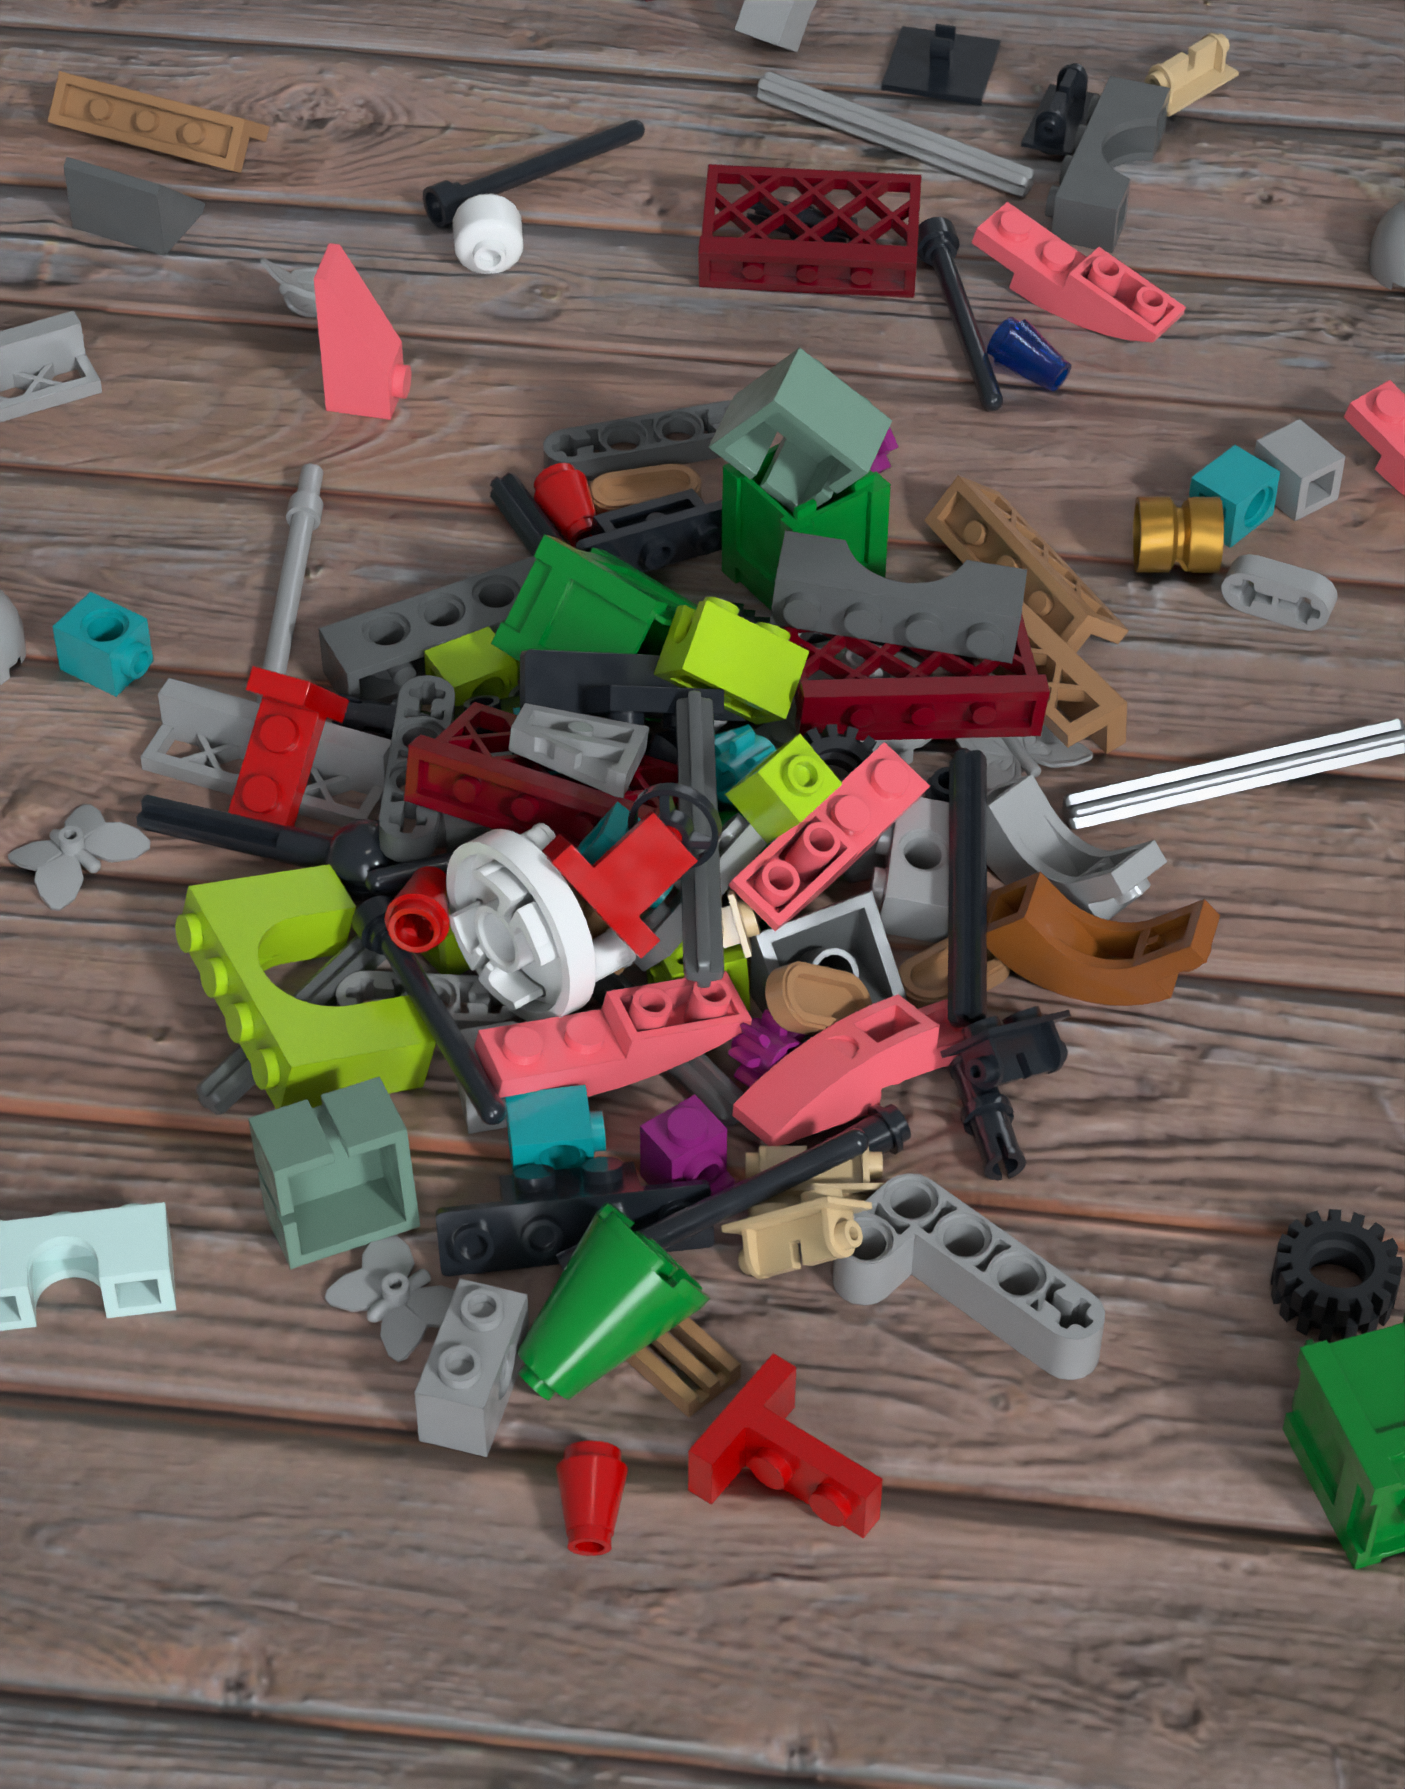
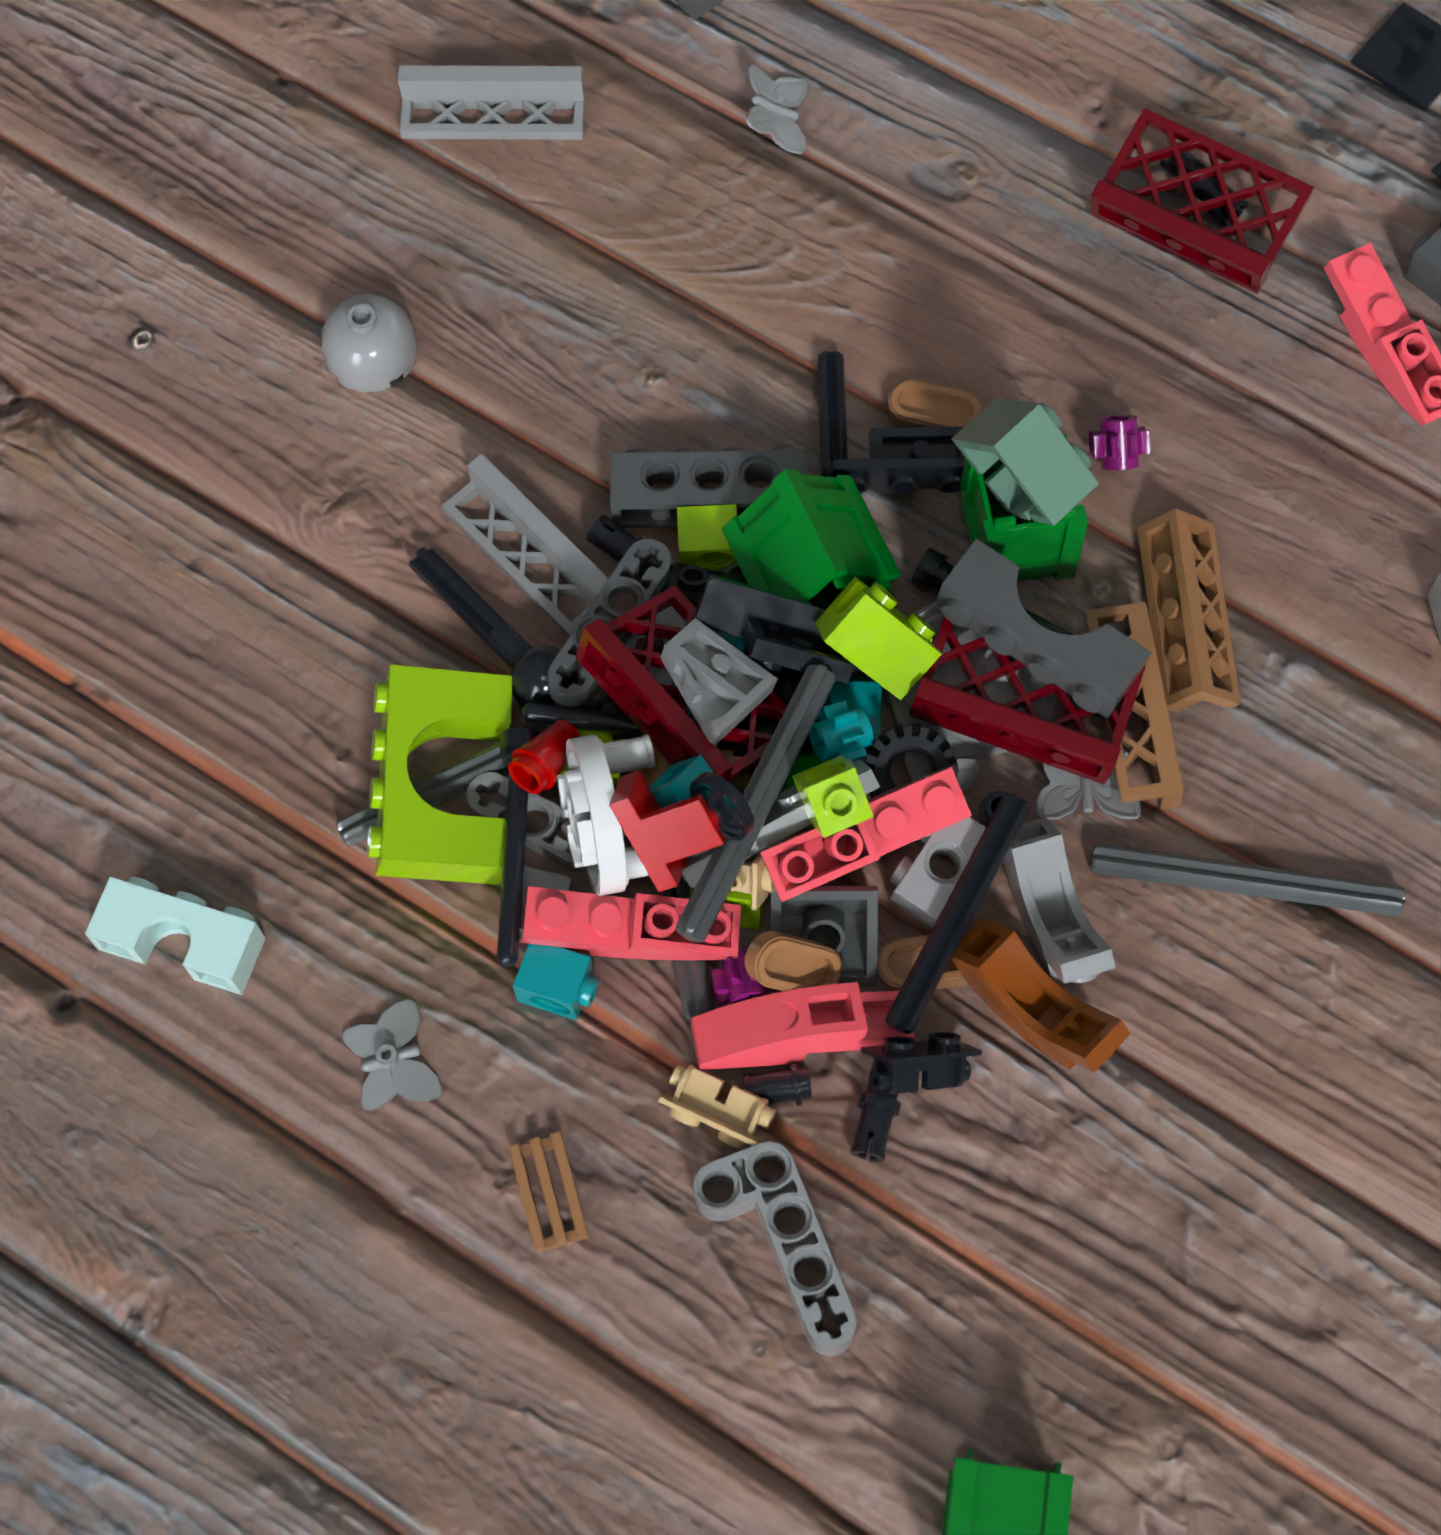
camera: 30 degrees right, 20 degrees up
(79, 842) = (369, 561): light grey piece -> none
(103, 644) = (457, 376): teal brick -> none
(282, 745) = (533, 549): red bracket -> none
(303, 516) = (667, 326): light grey bar -> none
(335, 1172) = (378, 951): sand green piece -> none
(357, 343) = (771, 186): coral slope -> none
(445, 197) = (934, 54): black piece -> none
(472, 1368) = (400, 1151): light grey brick -> none
(487, 229) = (943, 102): white head -> none
(550, 1212) = (536, 1051): black bracket -> none
(566, 500) = (866, 399): red cone -> none
(591, 1493) = (429, 1293): red cone -> none
(605, 1307) = (513, 1152): green cone -> none
(645, 432) = (964, 368): dark grey beam -> none
(685, 1146) = (638, 1044): magenta brick -> none
(751, 1190) = (521, 1105): black piece -> none
(782, 1455) = (569, 1327): red bracket -> none
(820, 1224) = (675, 1155): tan hinge -> none
(896, 134) = (1332, 120): light grey axle -> none
(938, 248) = (1299, 254): black piece -> none
(1026, 353) = (1310, 396): clear blue cone -> none
(1177, 534) = (1326, 634): pearl gold wheel -> none
(1245, 488) = (1397, 611): teal brick -> none
(1279, 592) = (1379, 723): light grey beam -> none
(1343, 1245) = (1083, 1350): black tyre -> none

